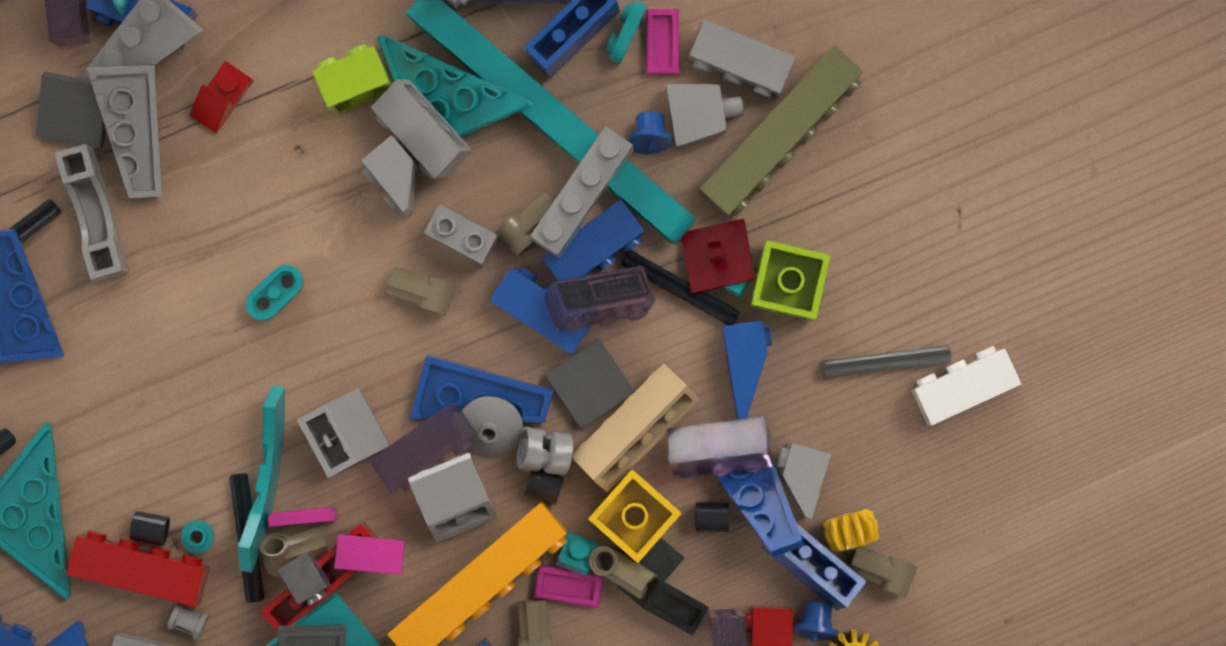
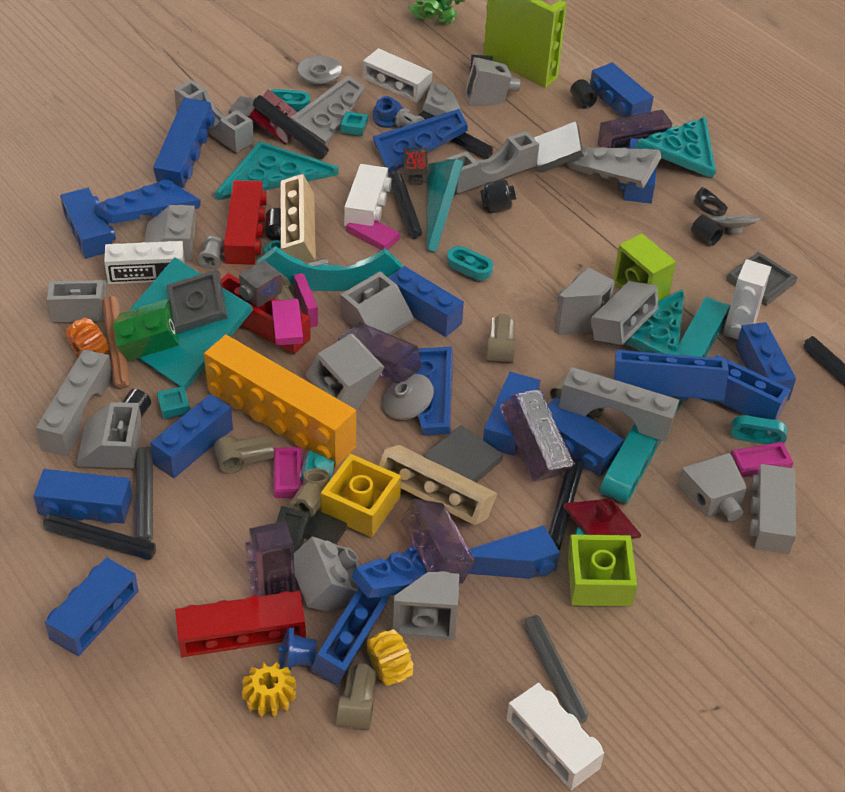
camera: 75 degrees right, 40 degrees down
(76, 320) = (415, 165): none -> clear smoke brick
(122, 397) = (367, 195): none -> white brick
(130, 118) = (571, 164): light grey wing -> none
(139, 349) = (405, 205): none -> black axle
(149, 299) = (440, 191): none -> teal tile
(156, 222) = (498, 196): none -> black head
(159, 501) = (298, 219): none -> tan brick
(183, 402) = (376, 235): none -> dark pink tile
(220, 97) = (595, 218): red slope -> none
(337, 369) = (429, 302): none -> blue brick
(461, 235) = (553, 353): light grey brick -> none
(544, 486) = (369, 438): black beam -> none
(549, 451) = (398, 425): light grey wheel -> none
(554, 118) = (673, 374): none -> blue brick
(650, 134) = (681, 454): blue piece -> none
(712, 516) = (371, 549): black beam -> none
(729, 569) = (325, 574): none -> light grey slope
(780, 131) = (728, 547): olive brick -> none

